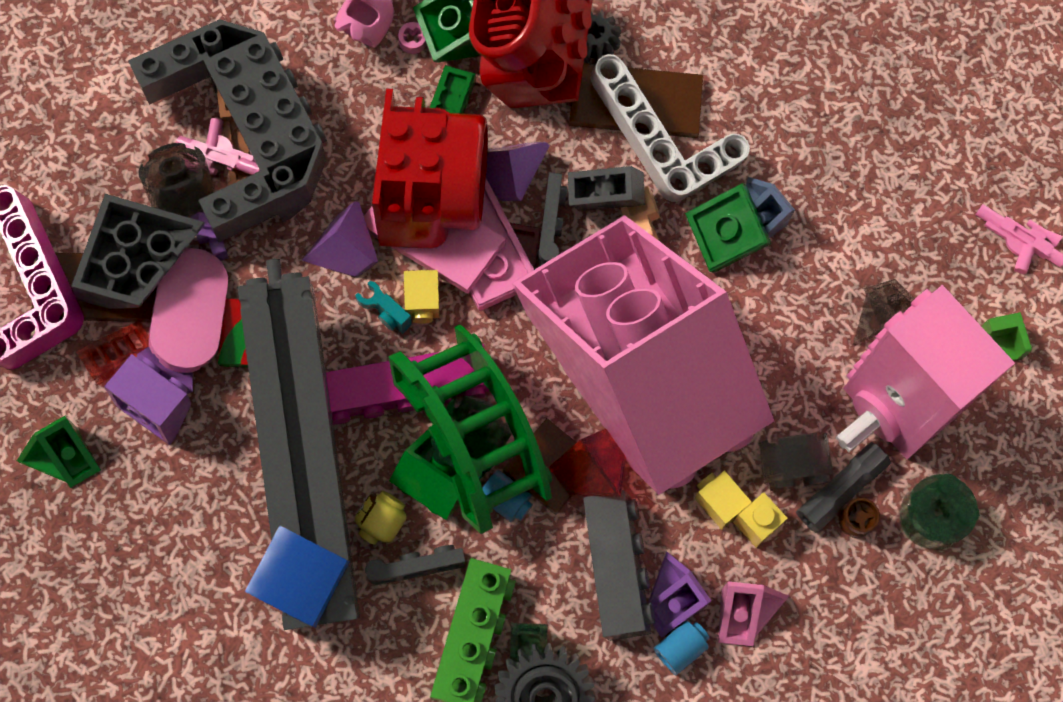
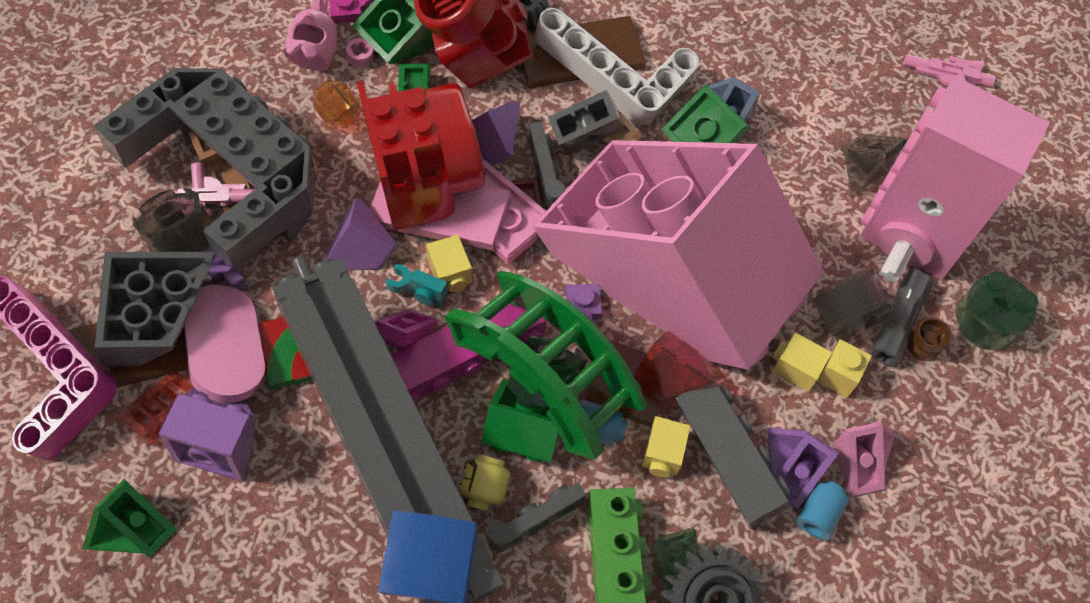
camera: 20 degrees left, 10 degrees down
(357, 348) = (405, 327): none -> dark pink plate
(367, 90) = (335, 104): none -> clear orange head
(536, 375) = (586, 299): none -> medium lavender plate
(558, 540) = (665, 447): none -> light yellow brick

